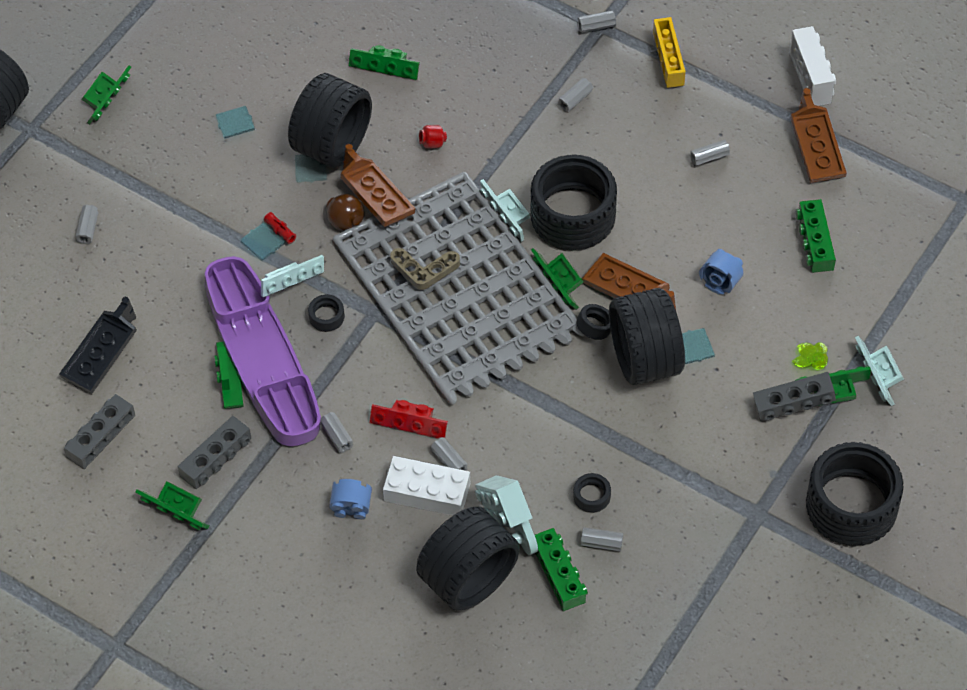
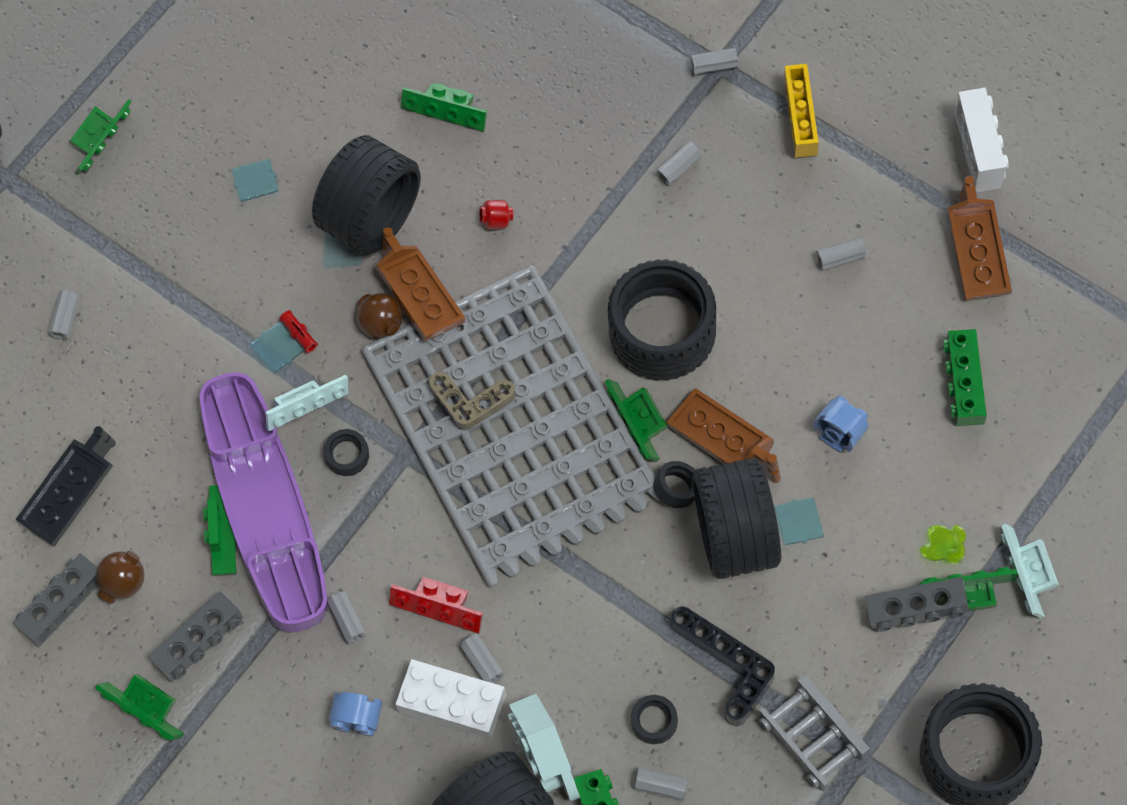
camera: 10 degrees right, 10 degrees up
(149, 409) = (119, 576): none -> reddish brown brick
(509, 207) = (584, 319): light aqua bracket -> none
(648, 445) = (729, 658): none -> black beam
(728, 478) = (822, 710): none -> light grey fence

